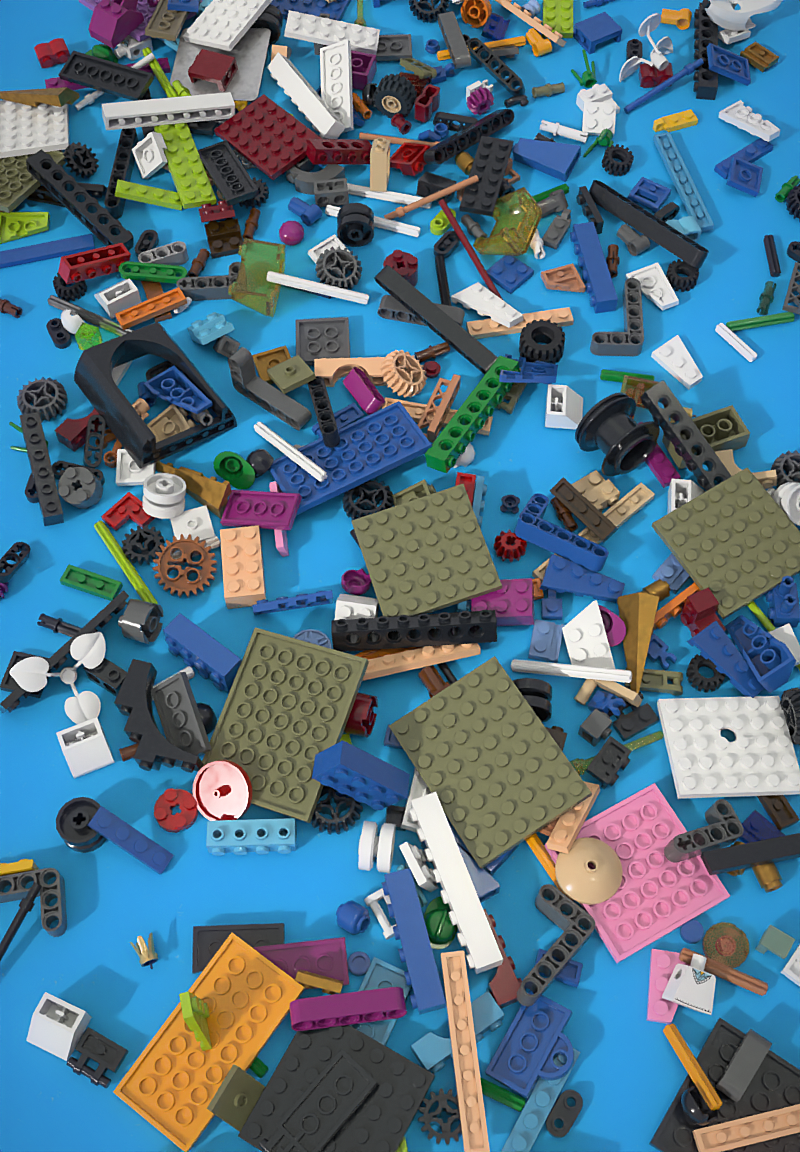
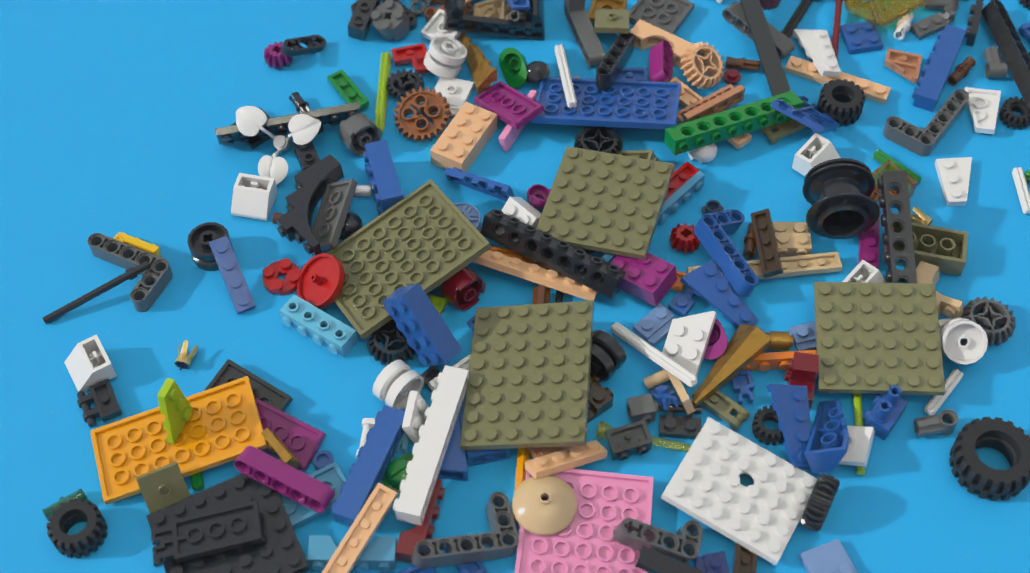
camera: 35 degrees right, 5 degrees down
(353, 917) = (343, 425): blue head -> none

